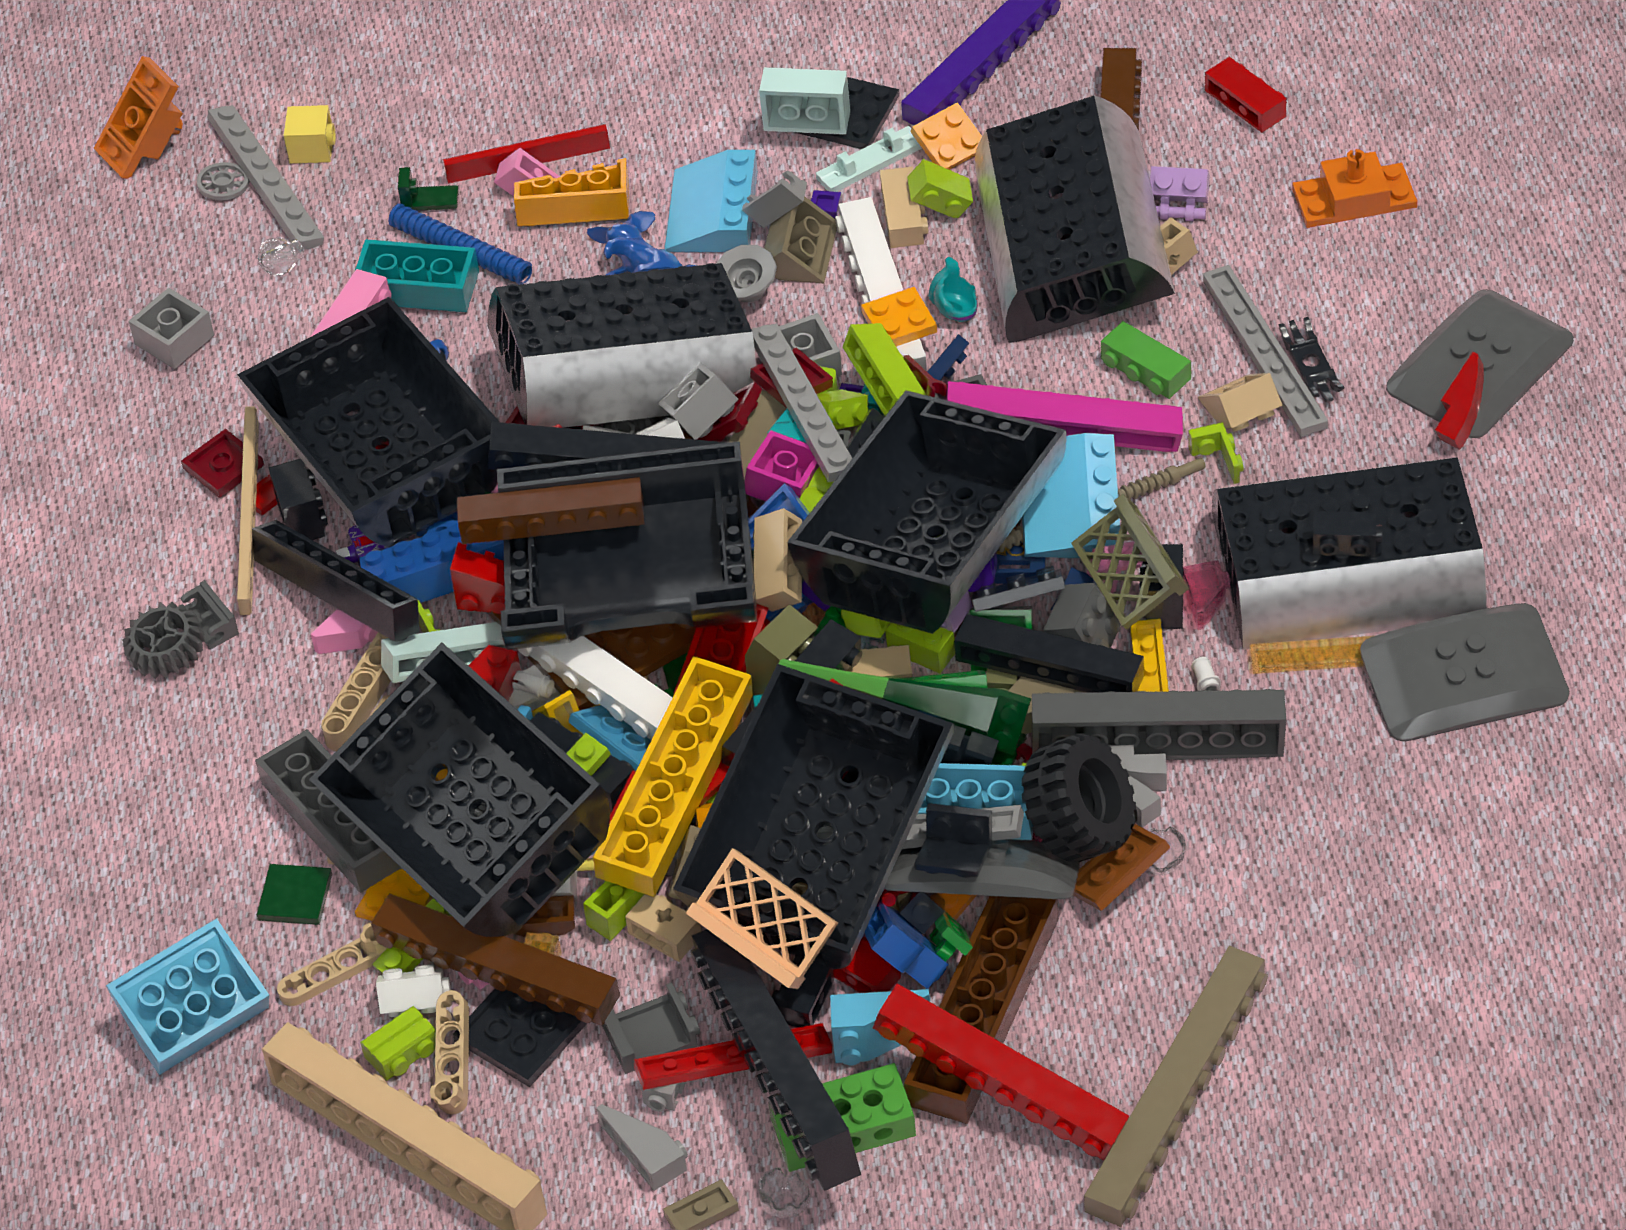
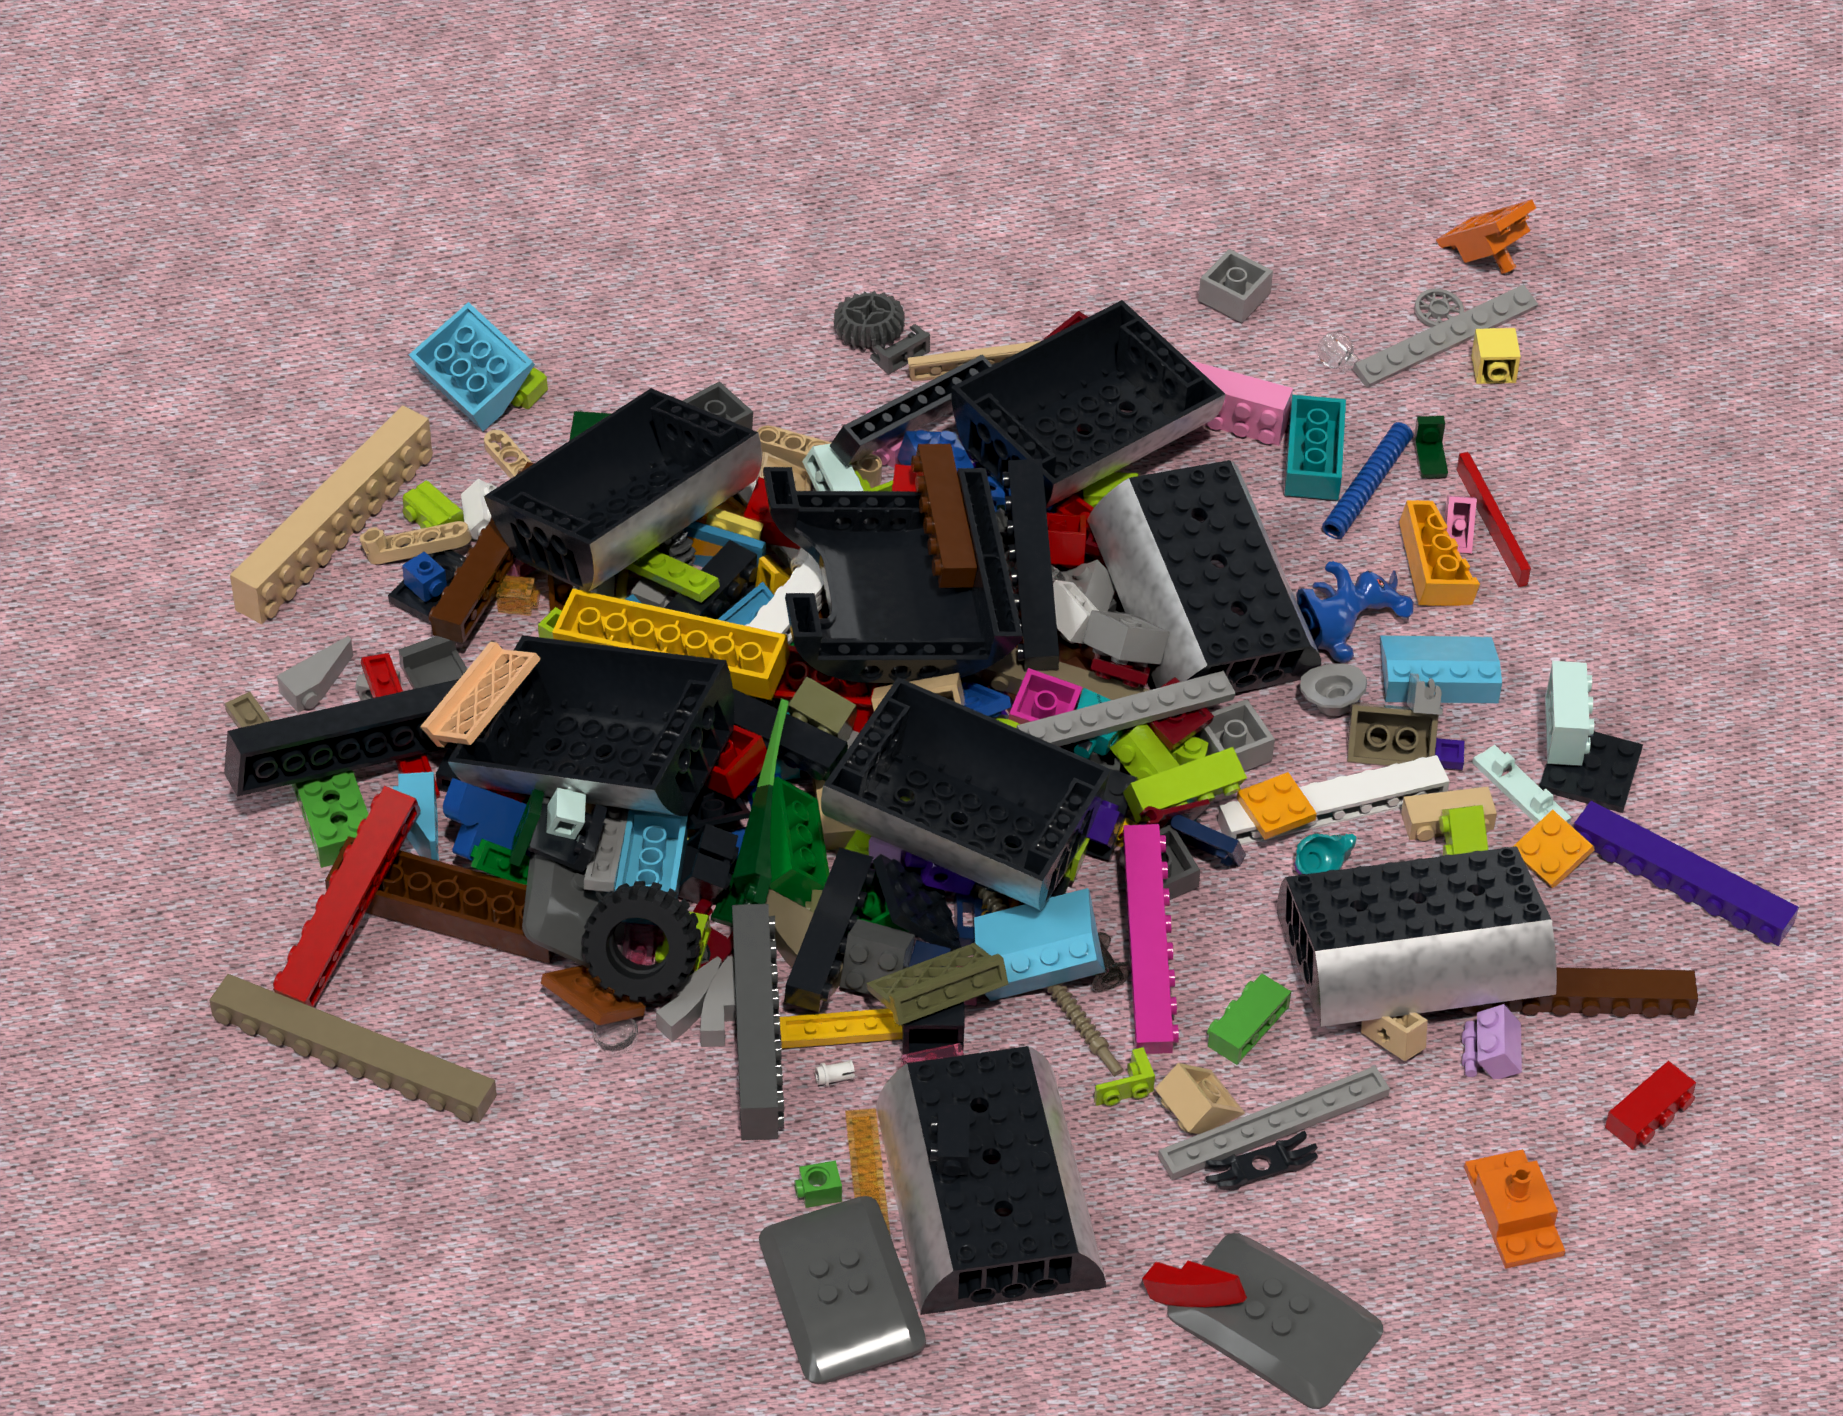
camera: 80 degrees right, 0 degrees up
(517, 1034) = (424, 576): none -> blue brick
(934, 838) = (566, 813): none -> light aqua brick
(934, 889) = (526, 827): none -> dark green tile
(1345, 685) = (819, 1174): none -> bright green brick

